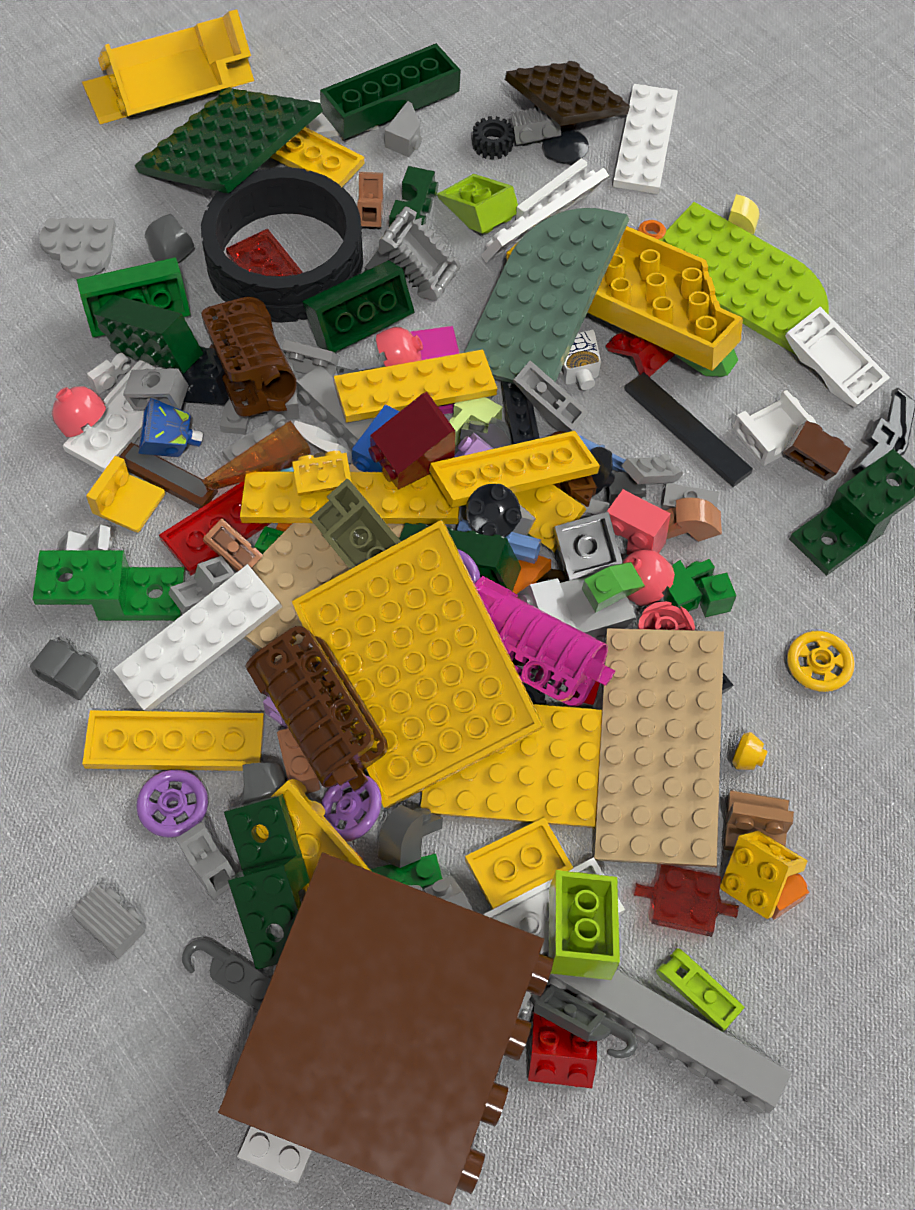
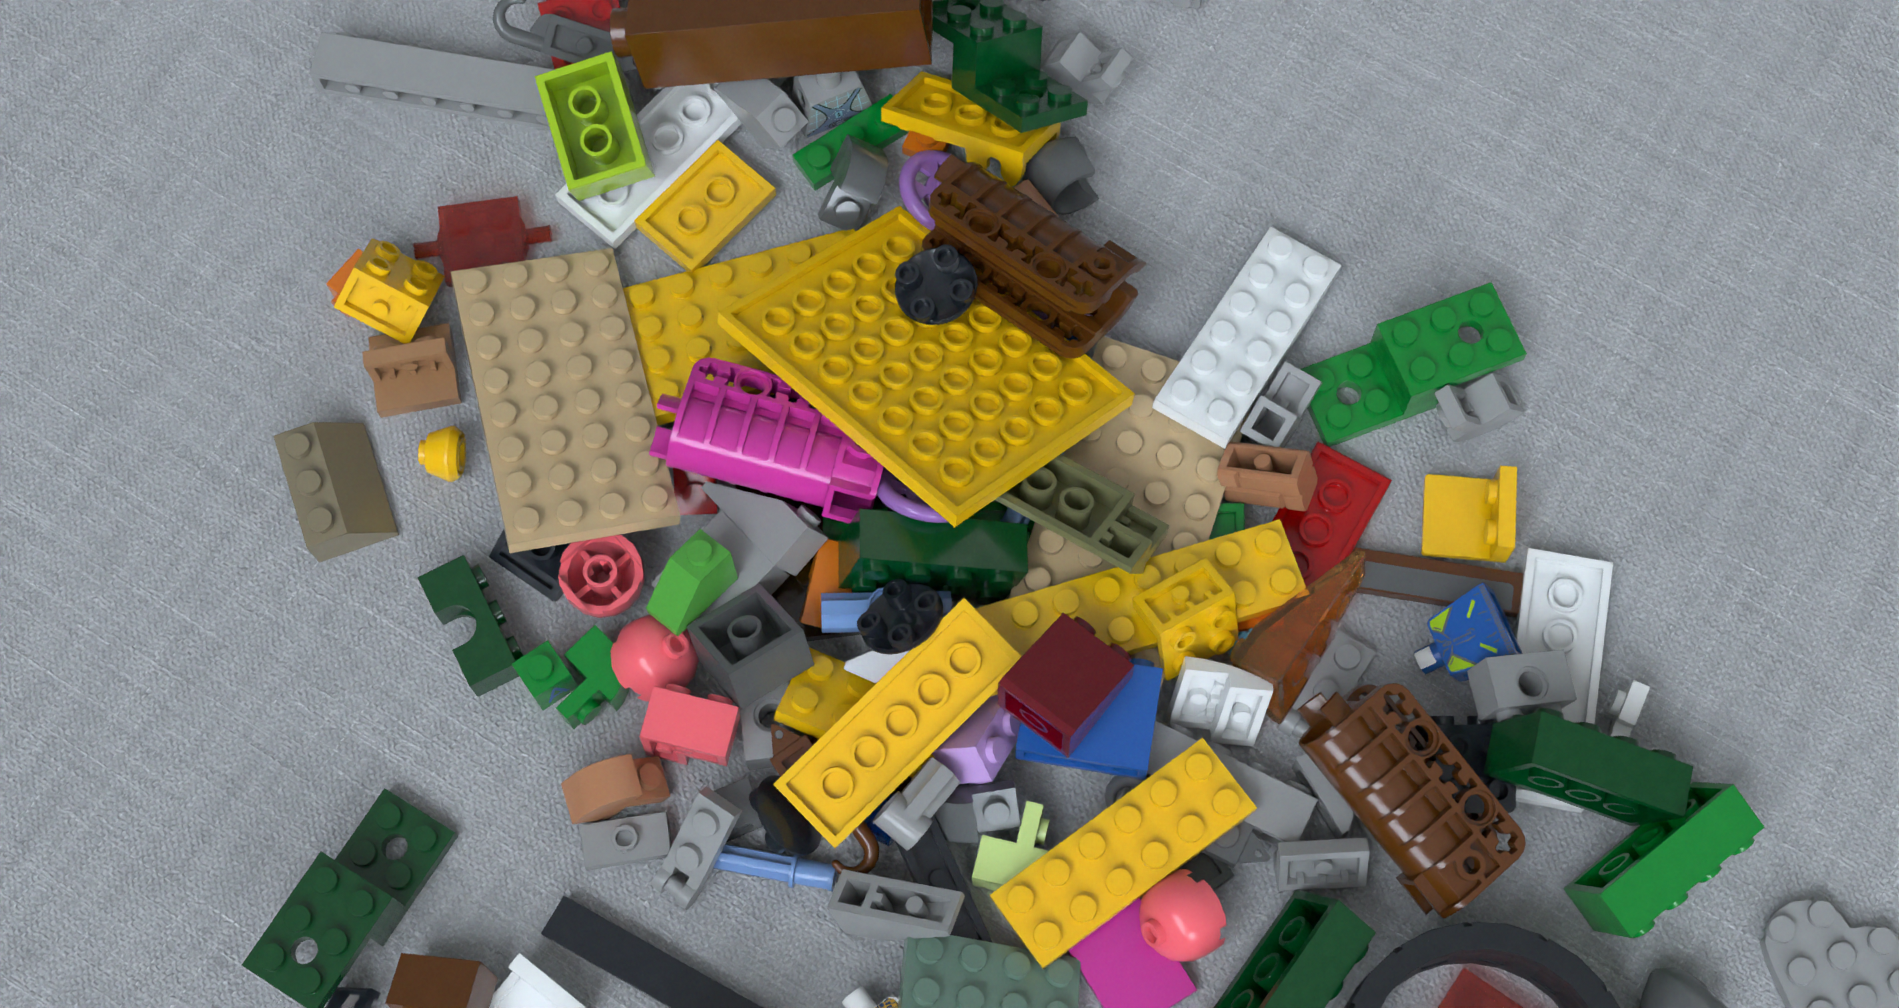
camera: 165 degrees right, 10 degrees up
(65, 669) = (1402, 240): dark grey brick -> none
(76, 408) = (1621, 618): coral cylinder -> none
(160, 783) = (1160, 158): medium lavender plate -> none
(173, 740) = (1213, 200): yellow plate -> none
(388, 707) = (936, 285): none -> black dish
(526, 428) = (909, 813): none -> light grey piece
(700, 990) = (439, 142): lime plate -> none
(756, 662) = (458, 592): none -> dark green arch
(804, 674) = (350, 608): yellow plate -> none
(827, 757) = (335, 487): none -> dark tan slope

